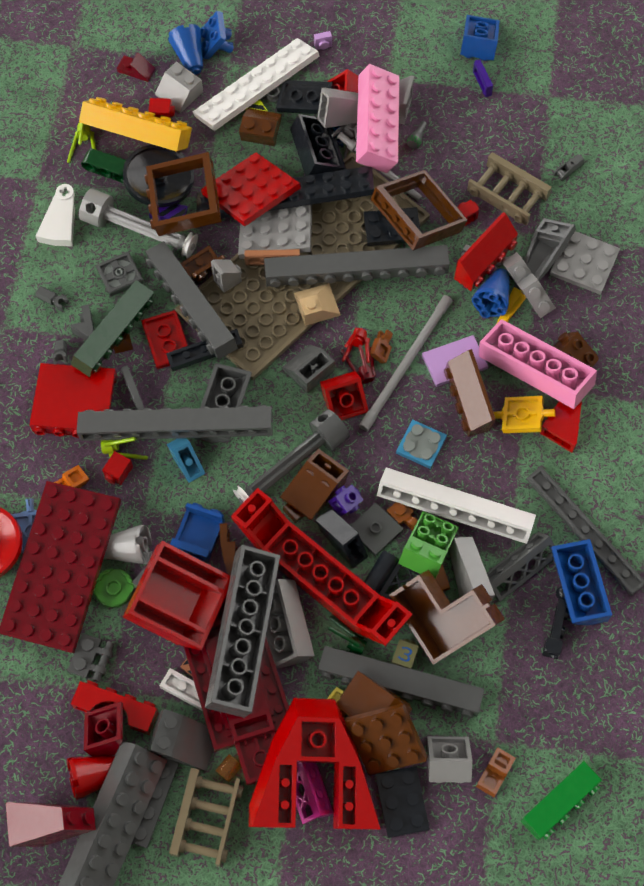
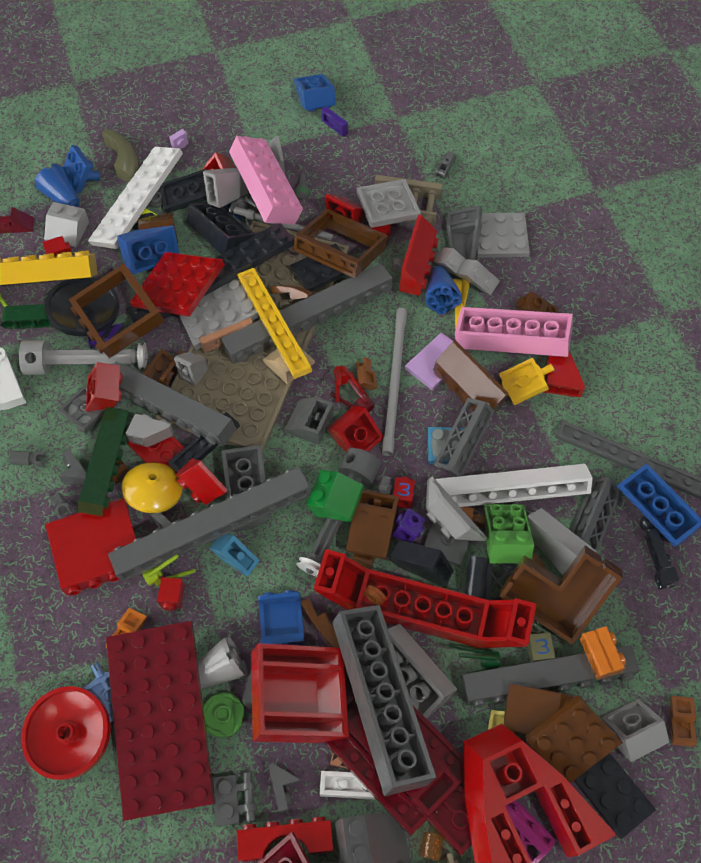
camera: 25 degrees left, 5 degrees down
(132, 661) = (282, 779): none -> dark grey slope
(140, 377) = (149, 494): none -> yellow dish
(141, 261) = (103, 387): none -> red slope
(162, 317) = (148, 431): none -> light grey slope
(184, 383) = (200, 482): none -> red slope
(239, 140) = (145, 247): none -> blue slope
(266, 39) = (127, 160): none -> olive brick
(281, 545) = (374, 595): none -> clear orange tile
(292, 445) = (334, 496): none -> green slope
(316, 264) = (274, 323): none -> yellow plate
(343, 456) = (385, 486): none -> dark grey bar
(353, 239) = (295, 291): none -> slope
(359, 468) = (404, 490): none -> red brick
(383, 506) = (449, 515): none -> light grey wedge
(439, 444) = (468, 437): none -> dark grey fence
(444, 175) = (344, 207): none -> red slope
(451, 682) = (602, 653): none -> orange brick
(486, 186) = (388, 203): none -> light grey plate

